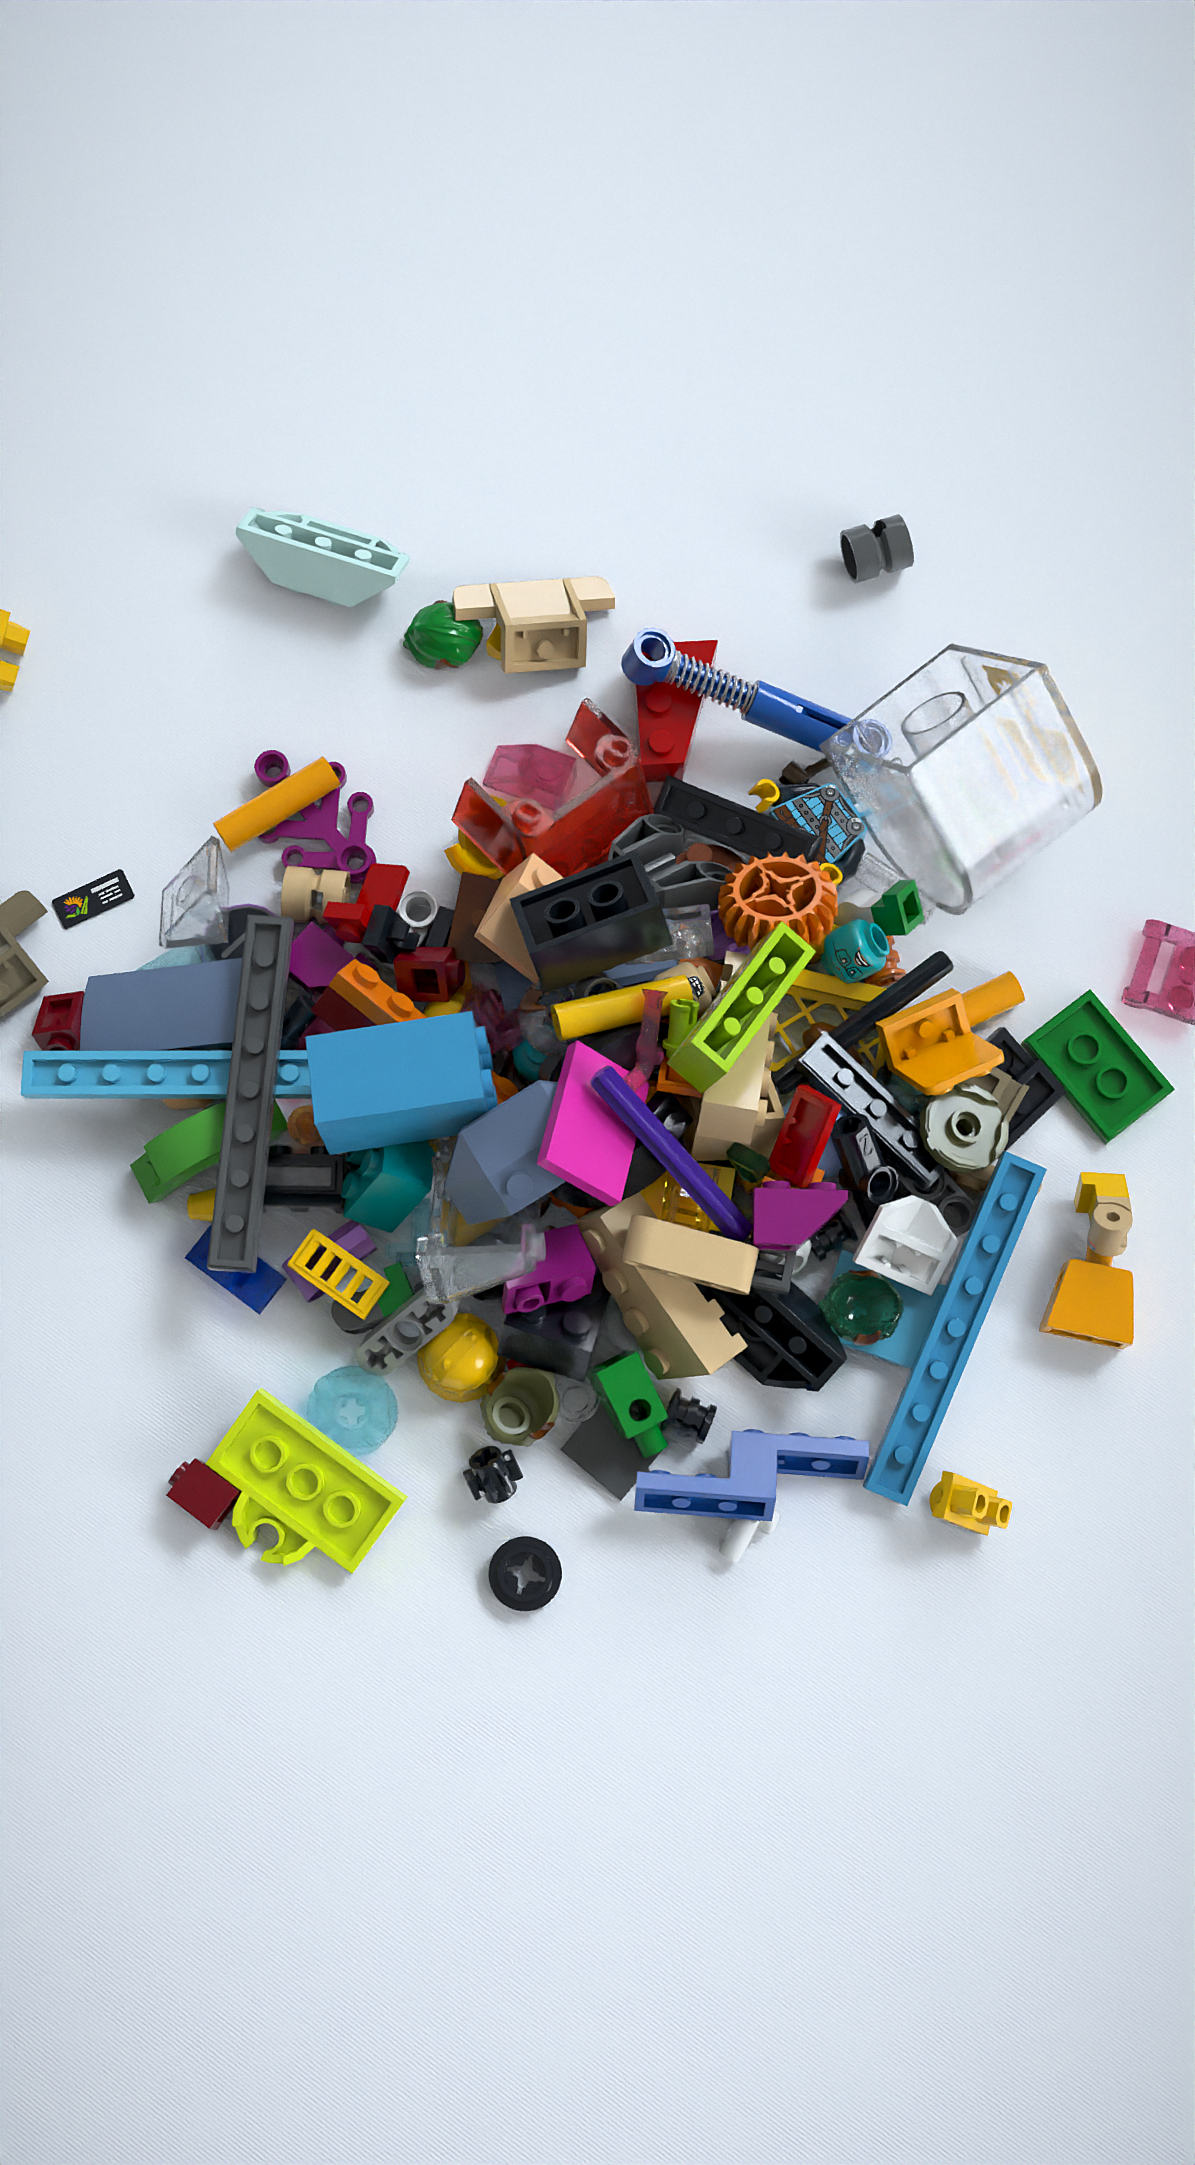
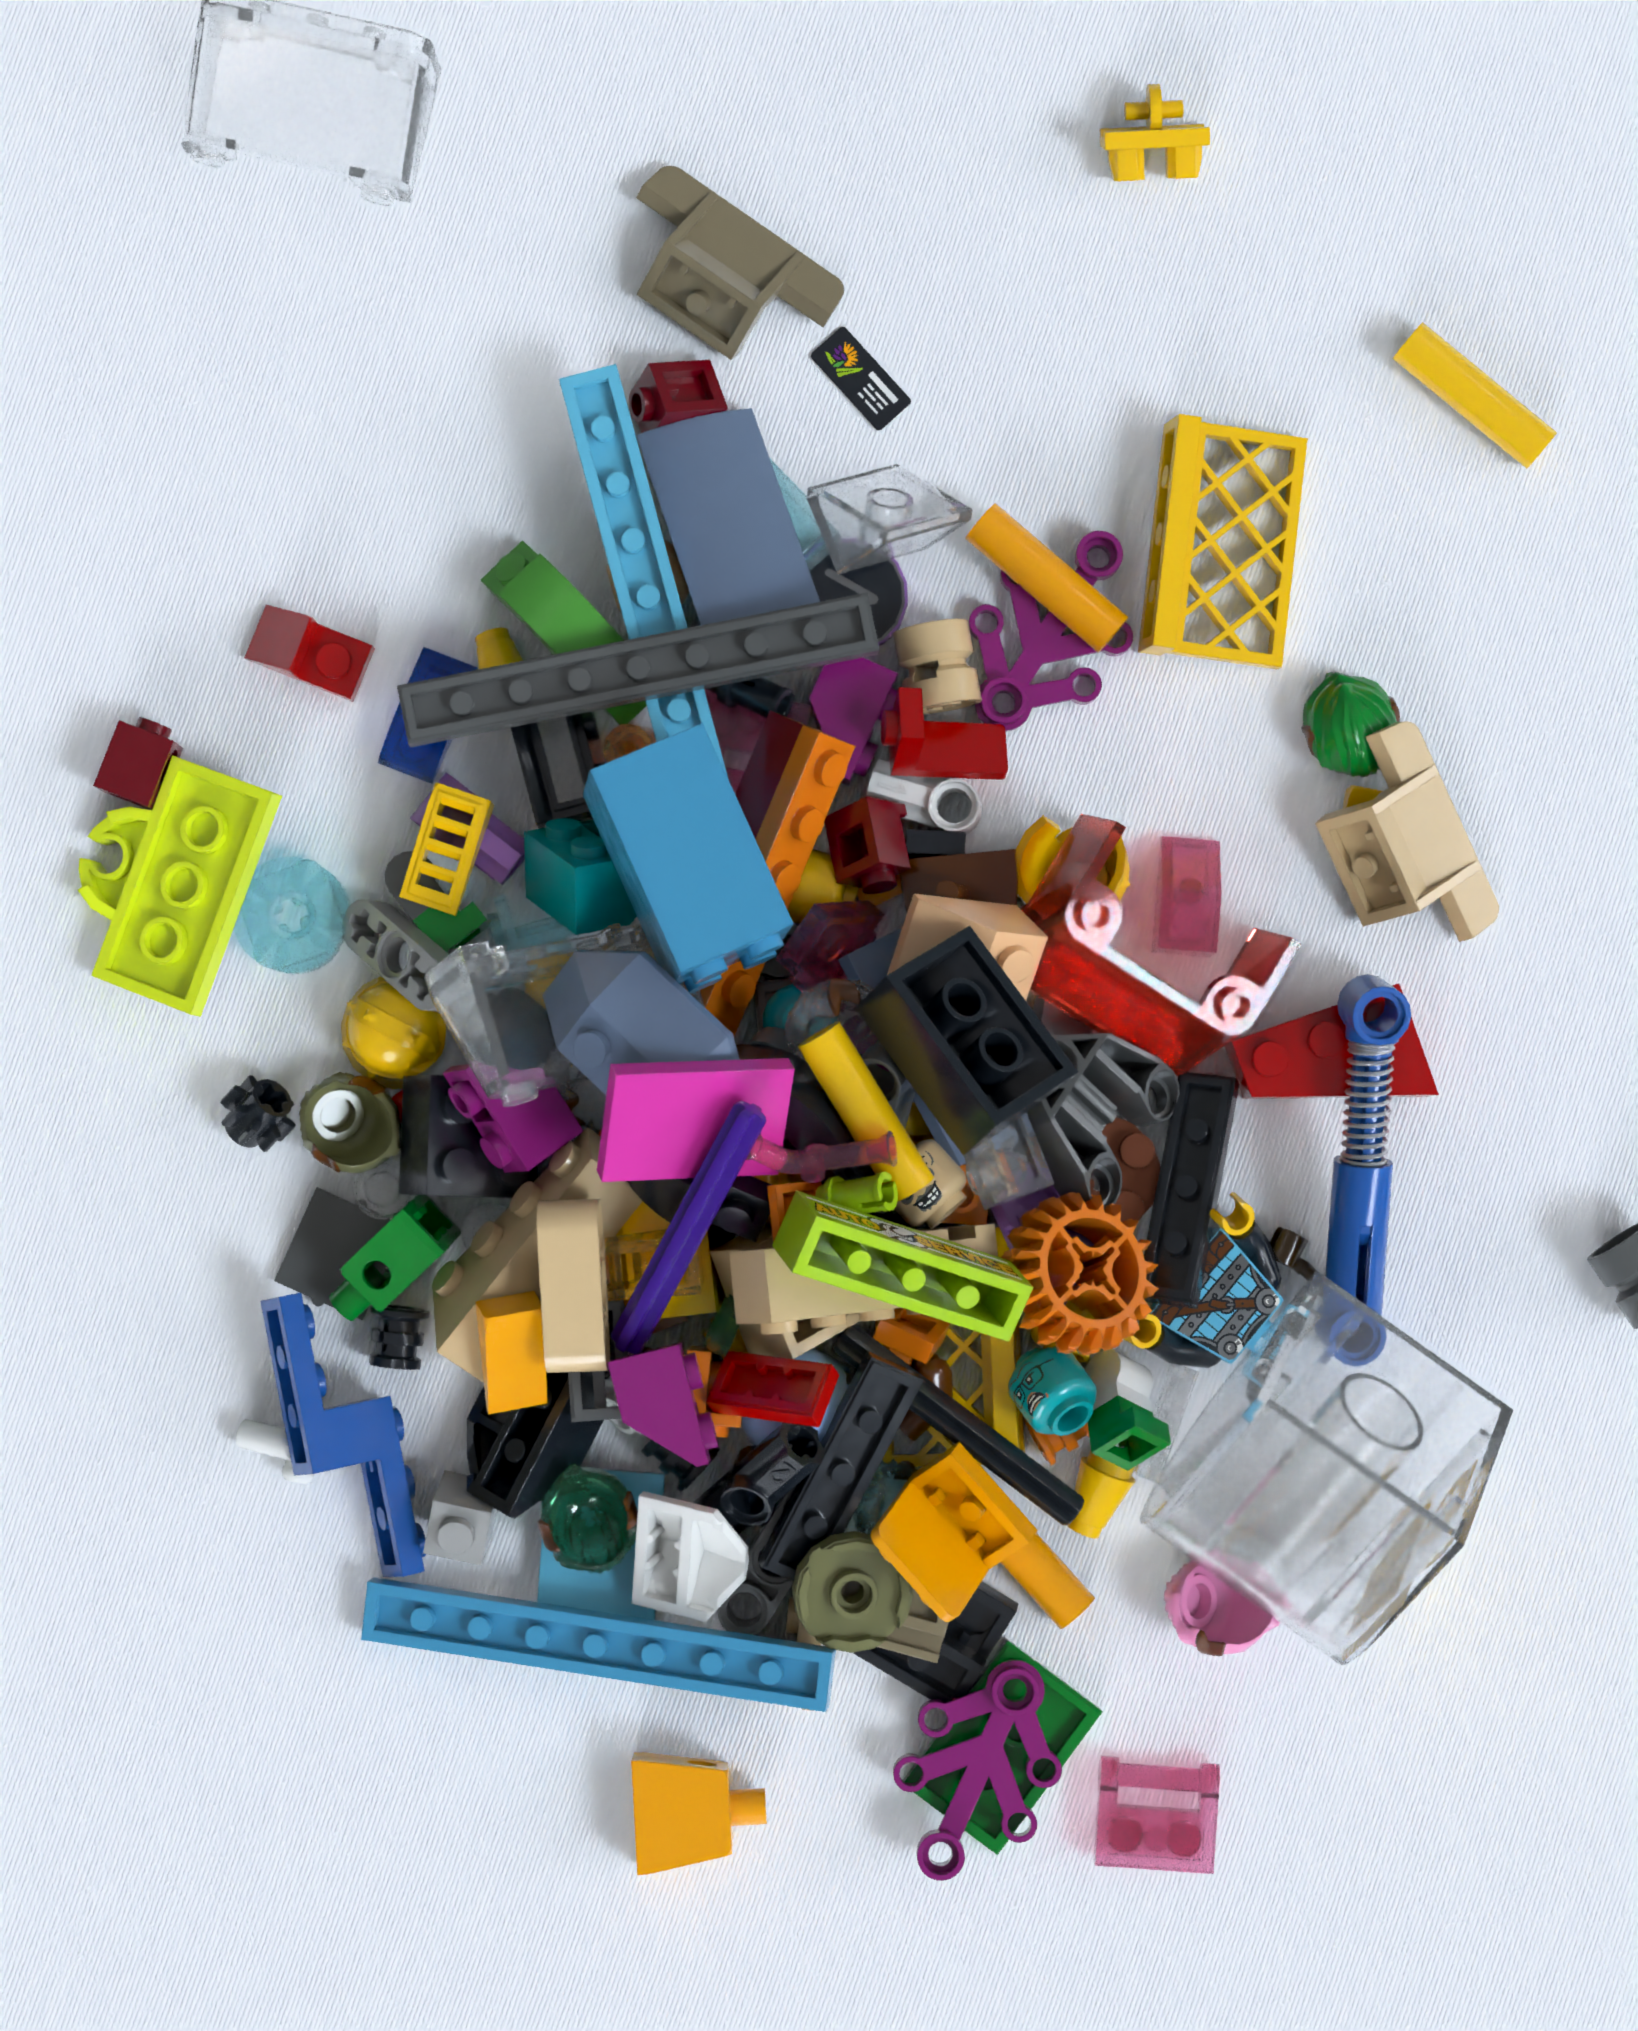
camera: 70 degrees right, 10 degrees up
(160, 1345) = (309, 652): none -> red slope
(242, 494) = (1474, 395): none -> yellow piece
(272, 714) = (1174, 533): none -> yellow fence
(320, 556) = (1415, 529): light aqua wedge -> none
(388, 934) = (901, 779): black tile -> none
(504, 1583) = (131, 1207): black gear -> none
(724, 1318) = (512, 1351): none -> light orange slope
(789, 1040) = (911, 1335): none -> orange tile
(838, 1405) = (458, 1522): none -> light grey brick
(927, 940) = (1103, 1490): none -> yellow cone
(968, 1504) = (381, 1716): yellow hips -> none
(1037, 888) = (1212, 1613): none -> bright pink hair
(1104, 1077) = (983, 1758): none -> magenta plant
(1109, 1211) = (795, 1809): leg -> none

